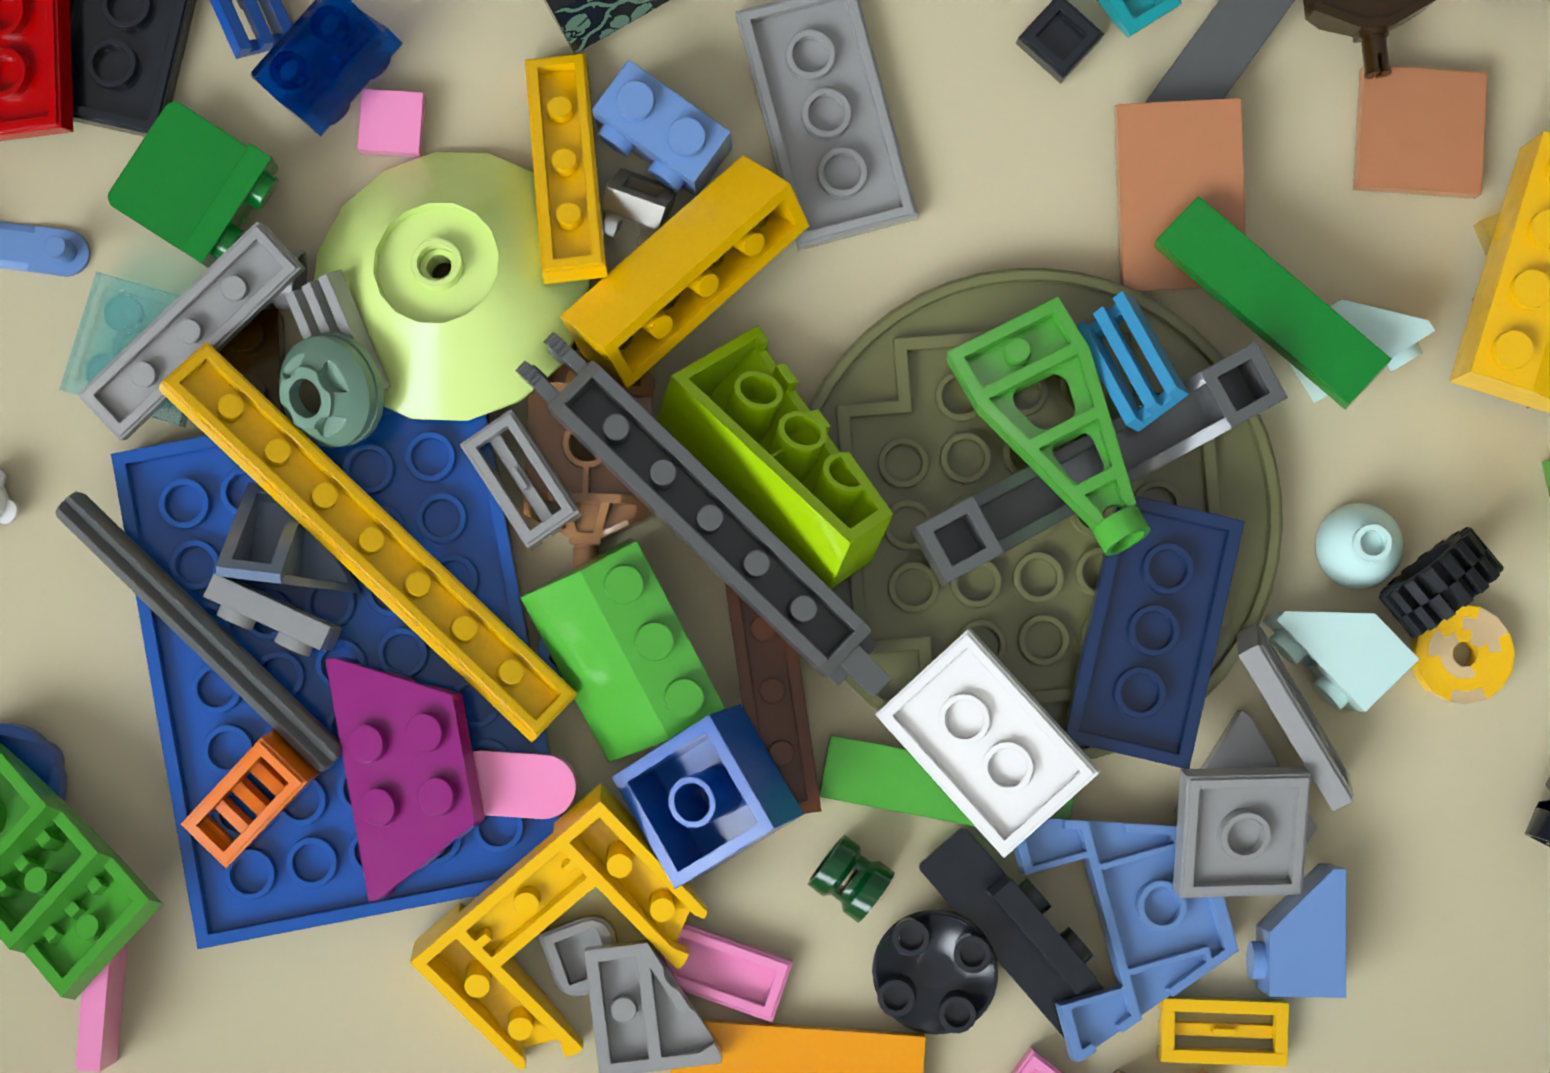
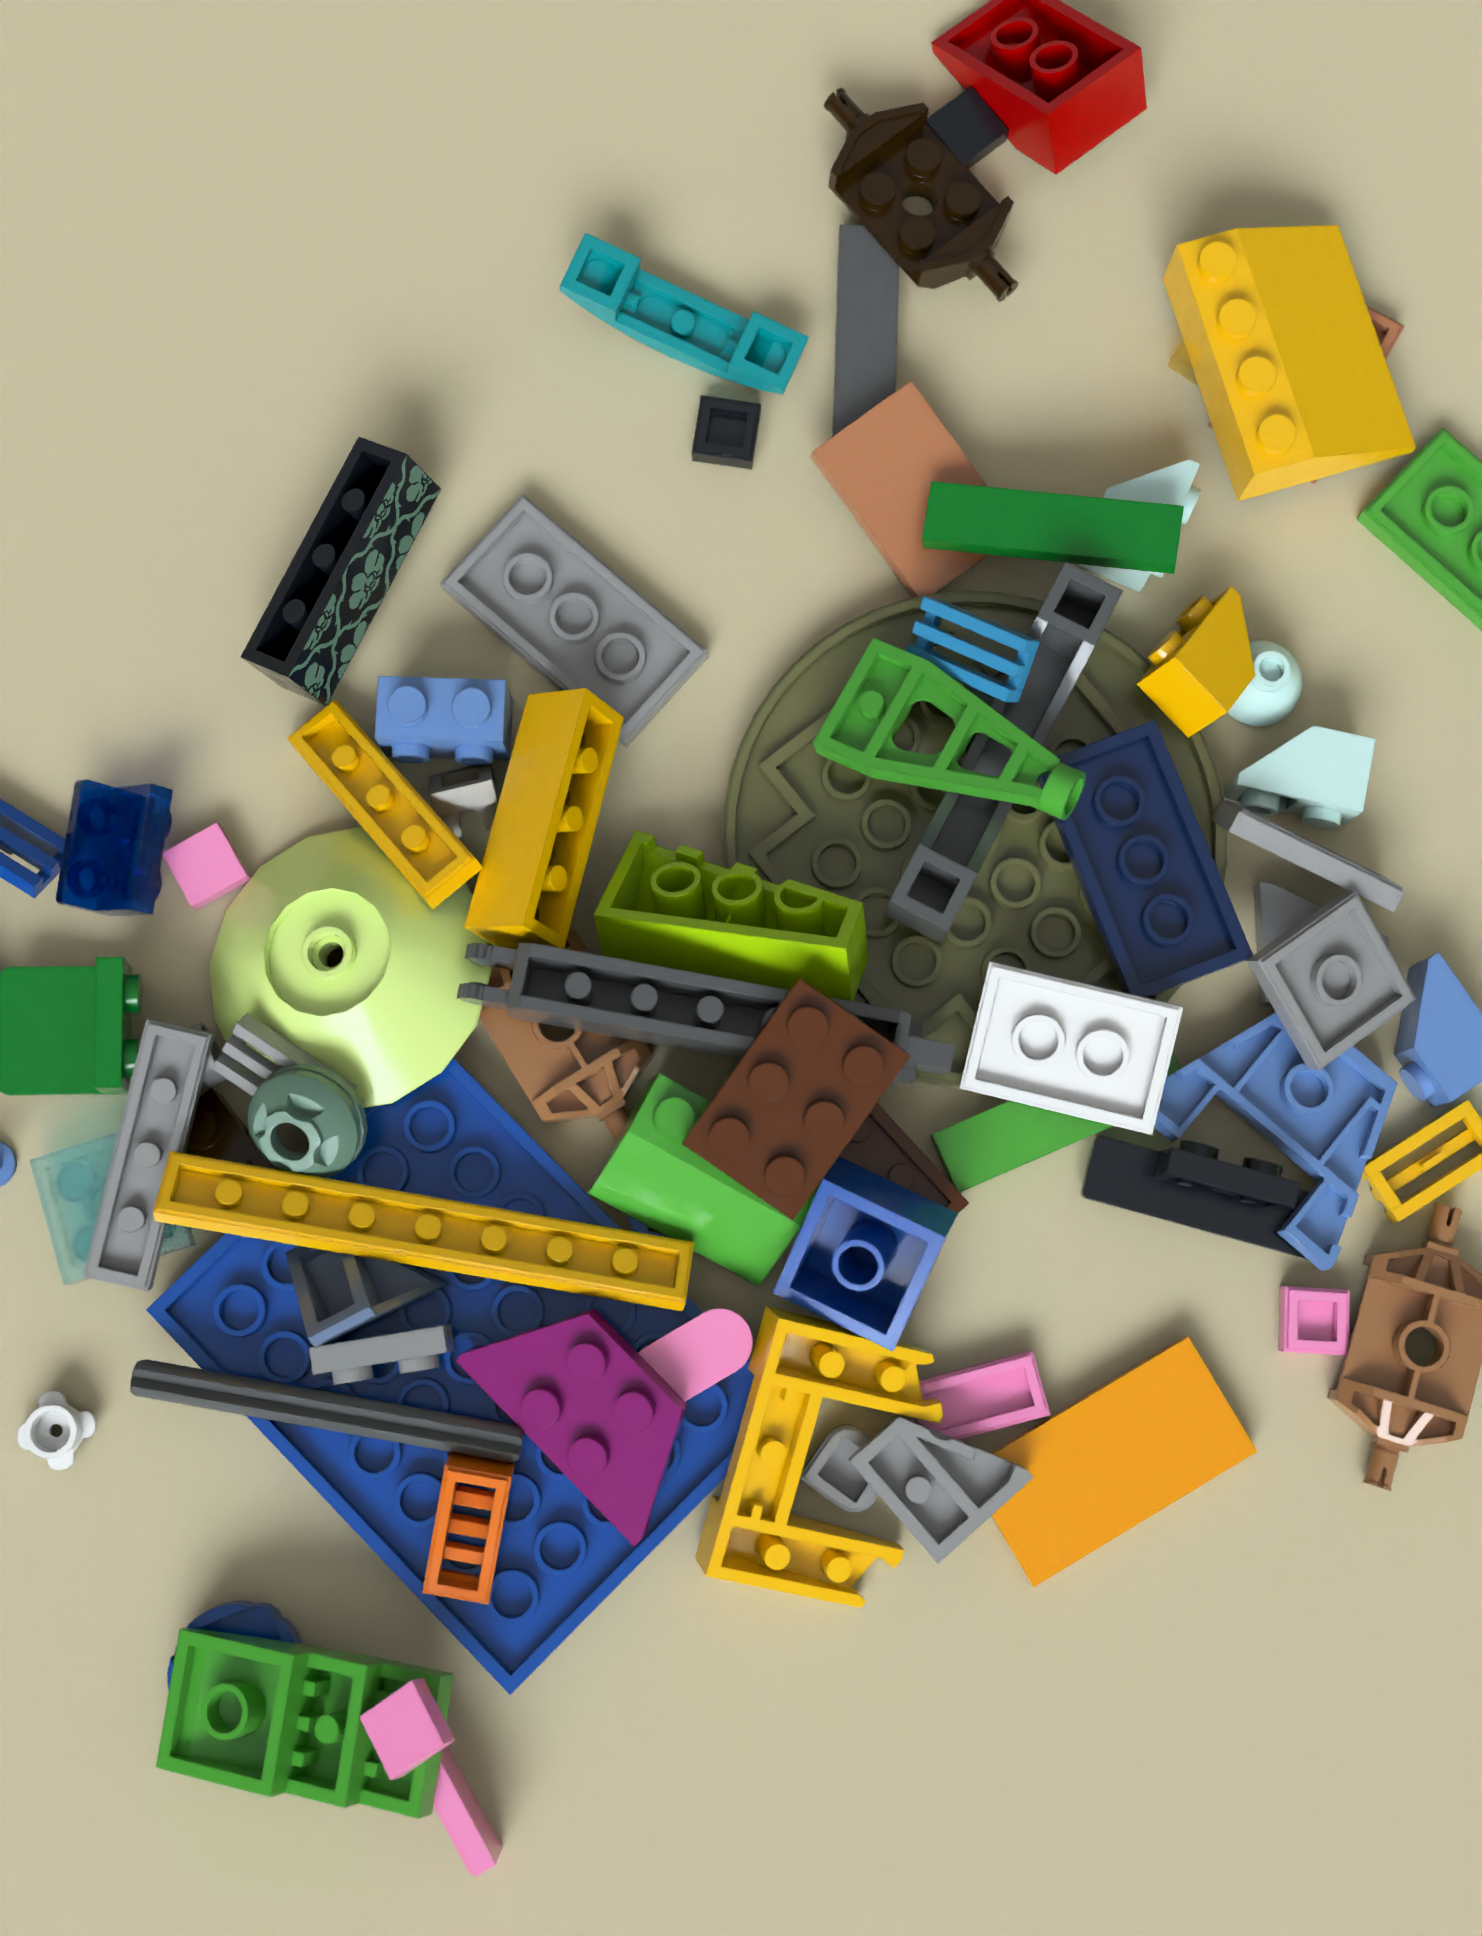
camera: 35 degrees left, 5 degrees down
(96, 922) = (407, 1728): none -> bright pink tile
(551, 522) = (573, 1110): light grey tile -> none
(730, 635) = (795, 1098): none -> reddish brown plate
(861, 888) = (1046, 1243): dark green wheel -> none
(935, 972) = (1158, 1276): black dish -> none
(1319, 501) = (1203, 665): none -> yellow slope
(1421, 132) = (1074, 318): nougat tile -> none
(1441, 582) = (1348, 664): black tyre -> none
(1489, 659) = (1426, 701): yellow piece -> none

